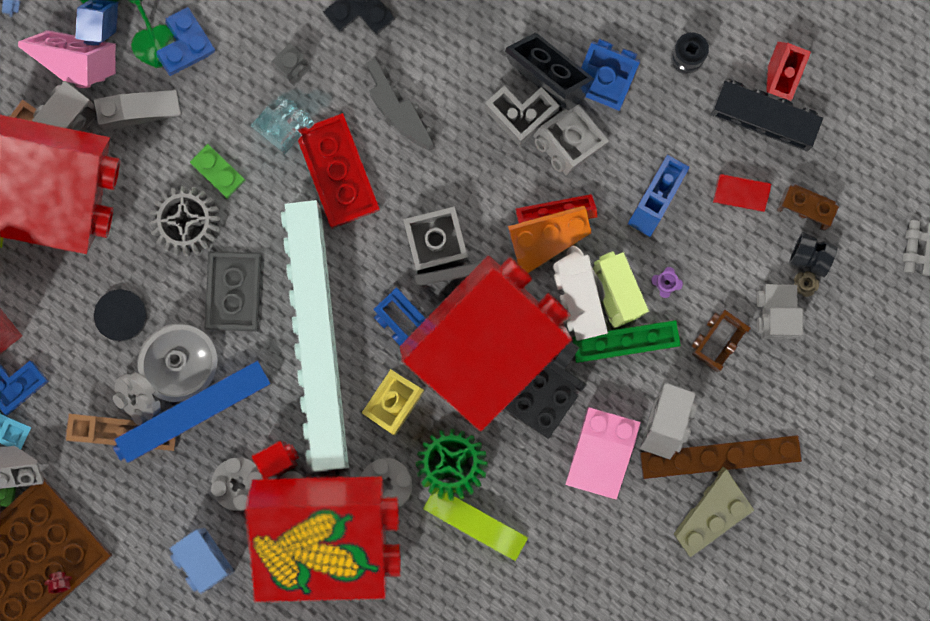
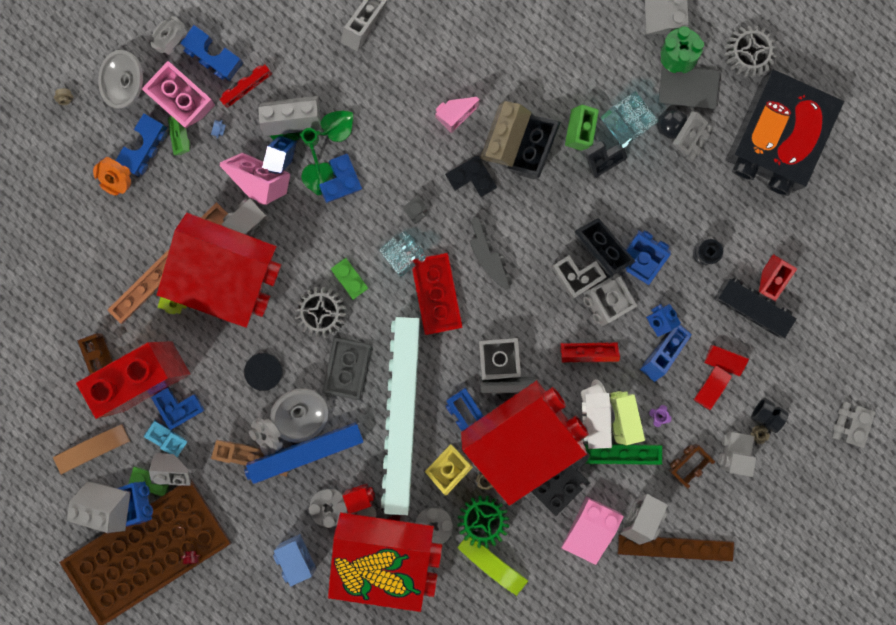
camera: 10 degrees right, 5 degrees up
(136, 108) = (298, 223): light grey slope -> none
(444, 417) = (481, 484): none -> dark tan plate
(548, 236) = (581, 369): orange wing -> none
(646, 151) = (663, 319): none -> blue brick
(714, 514) = (664, 588): olive wing -> none
(730, 232) = (712, 388): none -> red slope
(809, 205) = (773, 379): reddish brown window -> none

